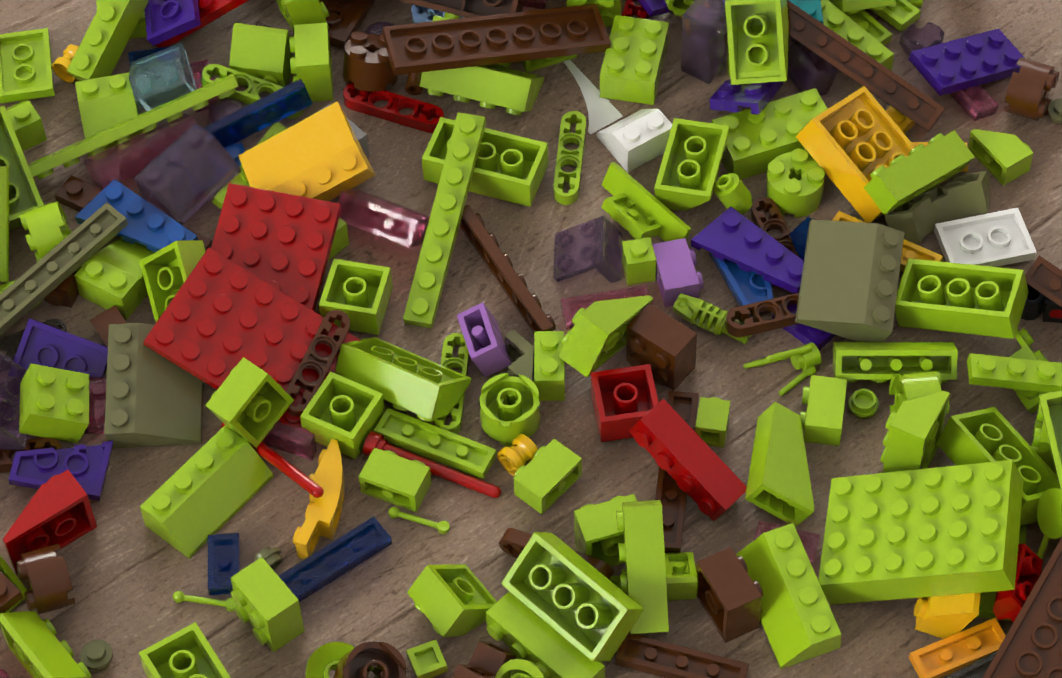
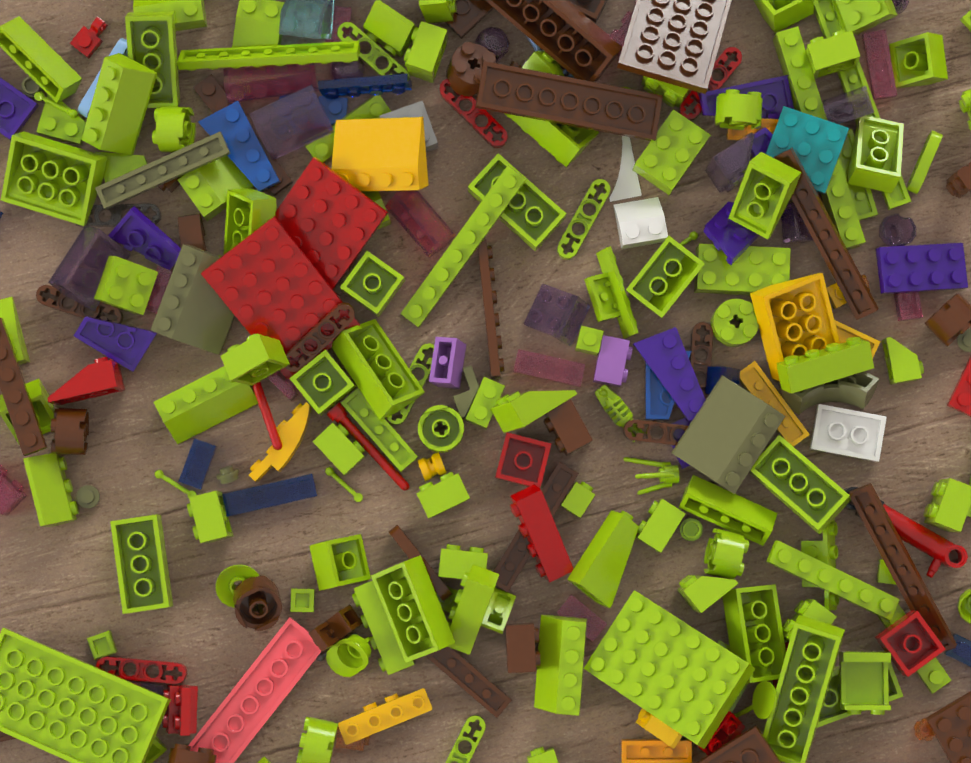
camera: 20 degrees right, 30 degrees up
(733, 193) = (683, 314): lime brick -> none

